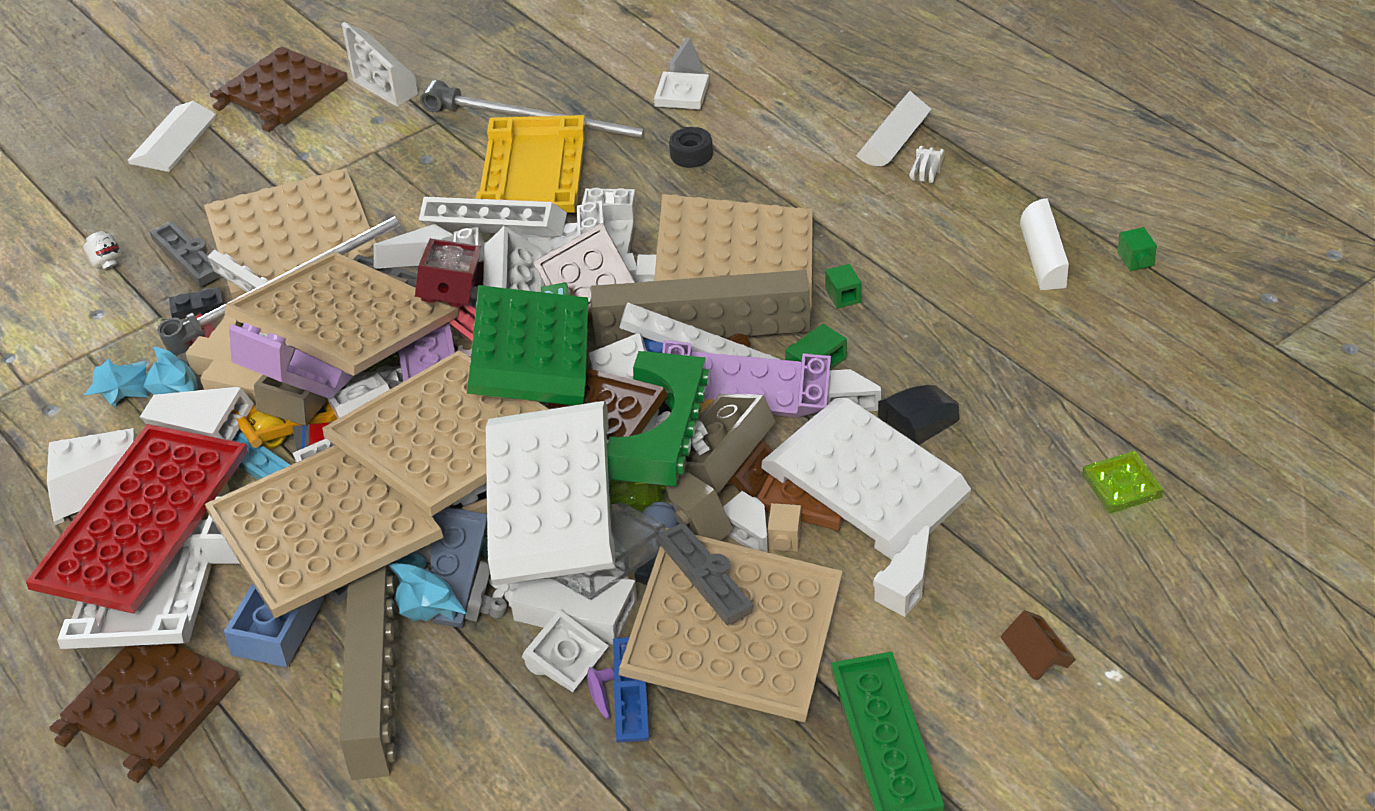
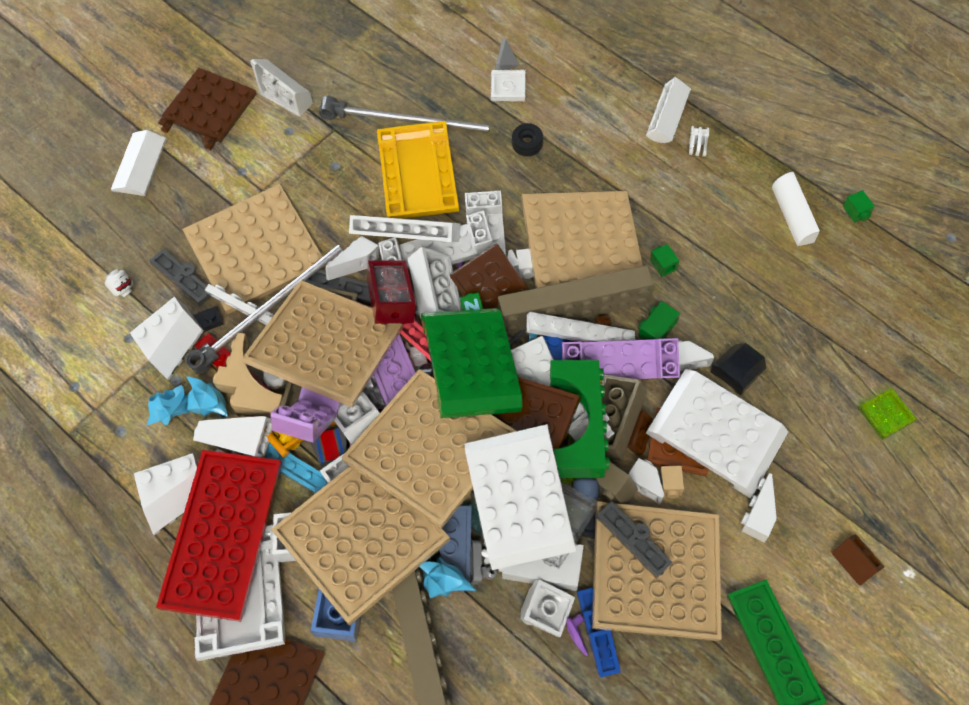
camera: 10 degrees left, 20 degrees up
(143, 304) = (167, 336): none -> white wedge

